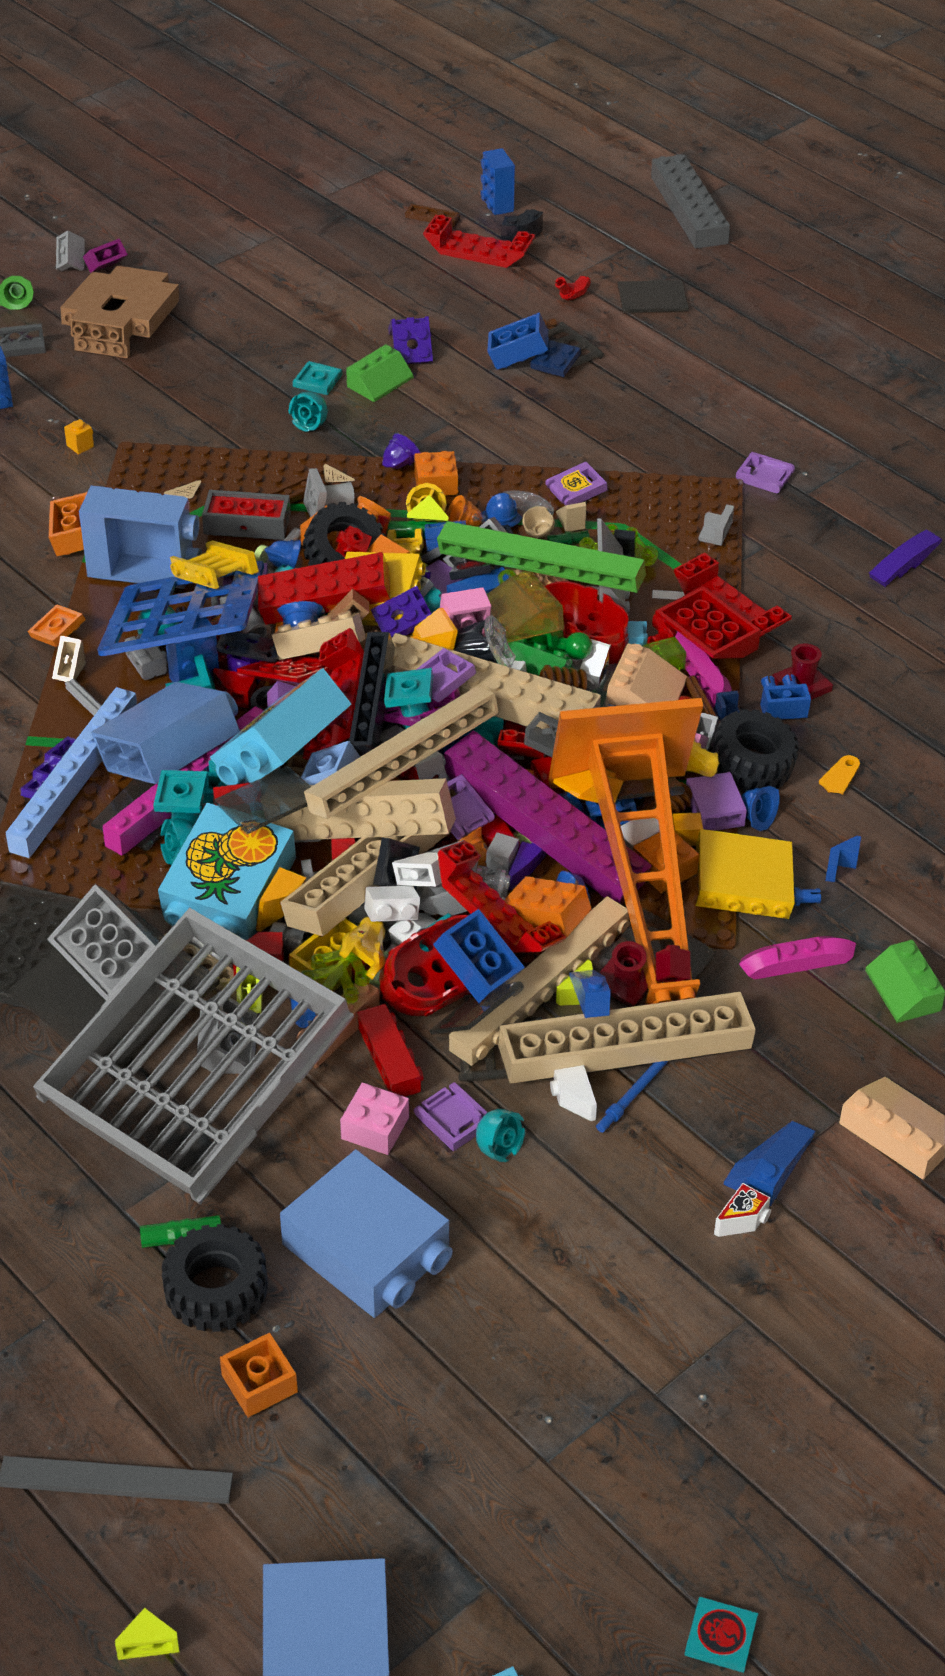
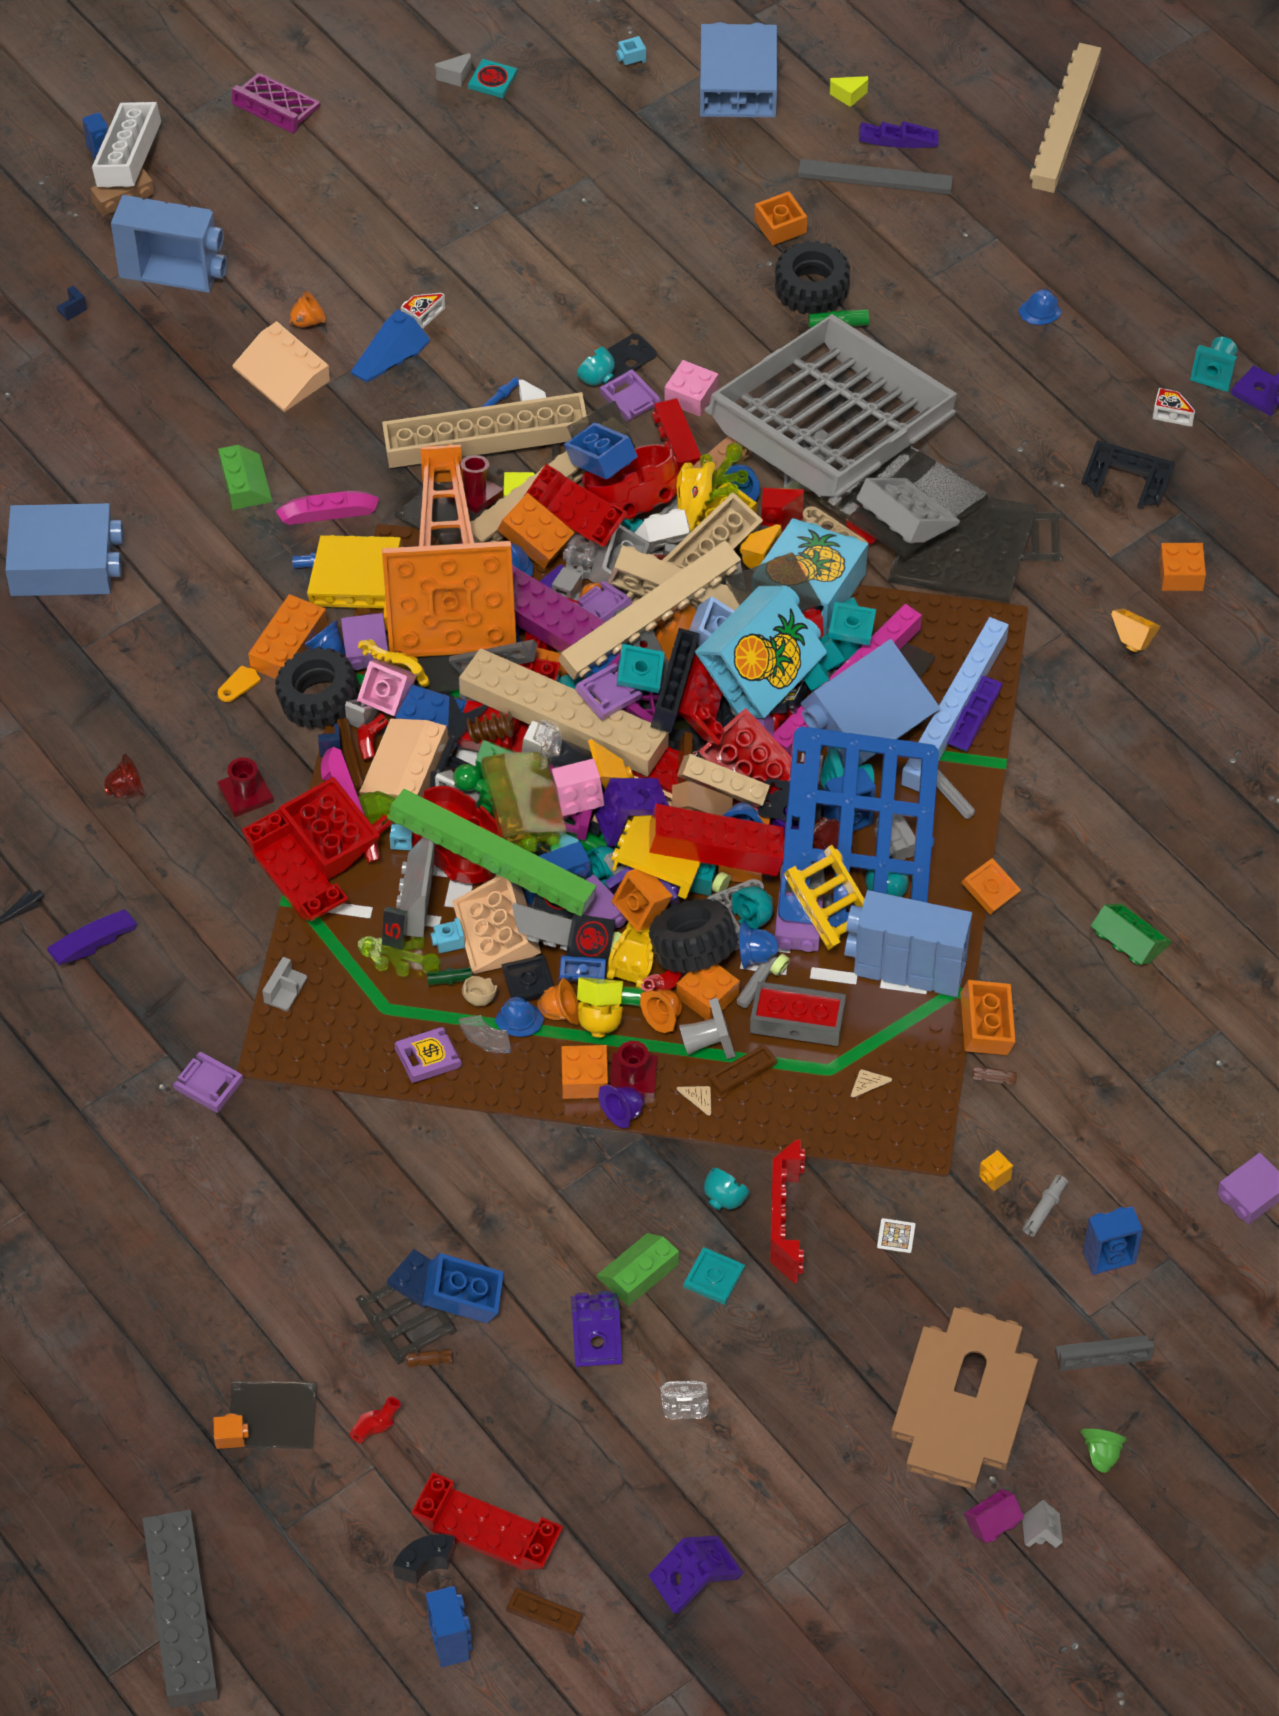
camera: 175 degrees left, 10 degrees up
(35, 426) = (1049, 1199): none -> light grey pin
(69, 659) = (972, 835): tan slope -> none
(74, 1555) = (902, 136): none -> dark purple slope
(167, 408) = (896, 1235): none -> sticker
(258, 417) = (785, 1253): none -> red slope
(323, 219) = (698, 1562): none -> dark purple bracket
(337, 301) = (684, 1399): none -> clear brick
(352, 541) = (683, 898): red brick -> none
(366, 1234) = (702, 298): medium blue brick -> none
(391, 851) = (668, 547): black tile -> none
(393, 478) = (634, 1068): none -> dark red plant
(418, 870) = (639, 537): white slope -> none
(470, 1179) = (623, 352): none -> black axle
(572, 516) = (441, 1004): tan slope -> none
(591, 992) = (510, 450): blue slope -> none
(672, 964) = (440, 459): dark red brick -> none
(680, 275) = (230, 1431): none -> orange brick
(785, 700) = (272, 751): blue brick -> none
(785, 1635) = (454, 70): none -> light grey slope
(801, 808) = (286, 635): none -> orange brick
(843, 855) = (260, 595): blue slope -> none
(889, 1194) = (306, 312): none -> orange piece
(920, 673) = (123, 779): none -> clear red piece

